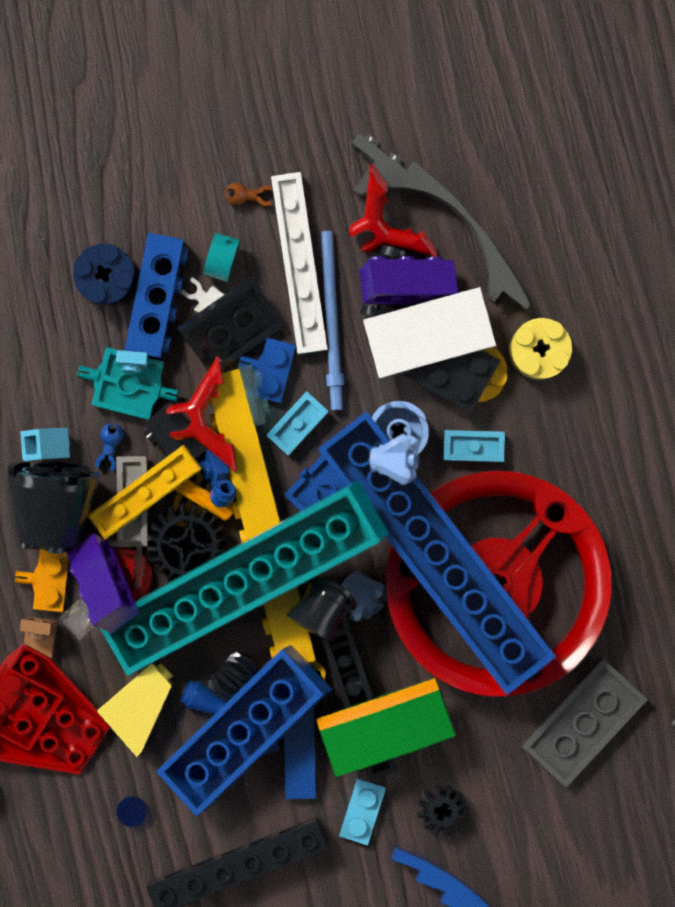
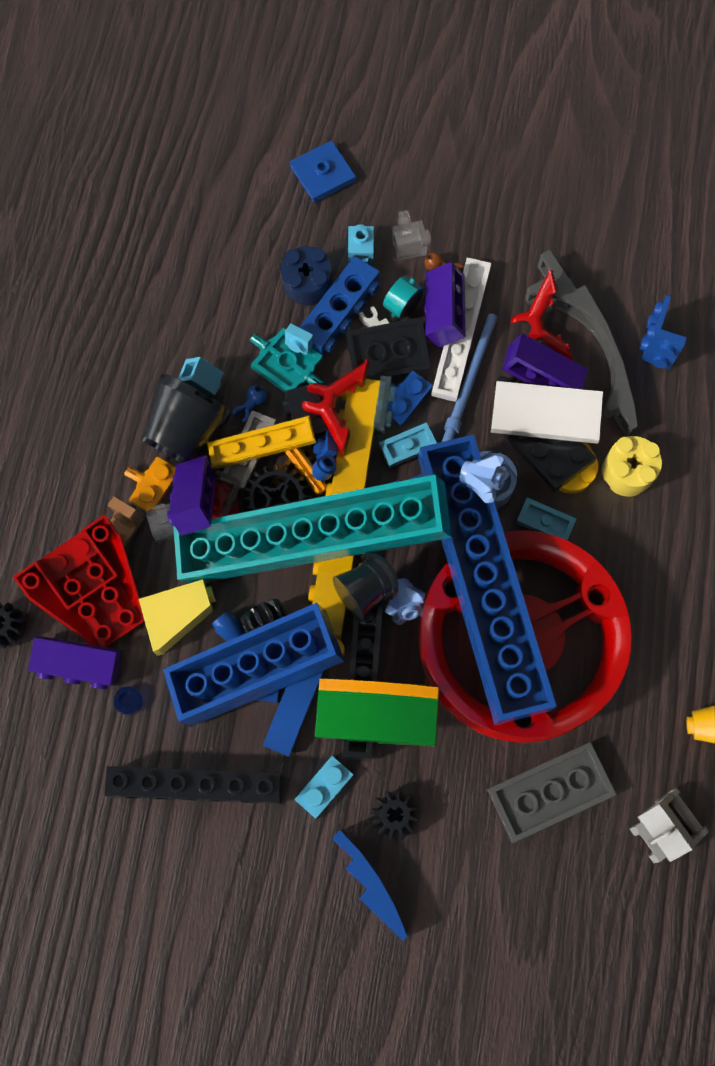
camera: 20 degrees right, 15 degrees down
(62, 797) = (75, 662): none -> dark purple brick
(63, 131) = (322, 171): none -> blue plate
(147, 209) = (361, 243): none -> medium azure brick
(199, 178) = (409, 238): none -> clear brick
(271, 249) = (445, 305): none -> dark purple brick
(524, 203) = (658, 345): none -> blue bracket

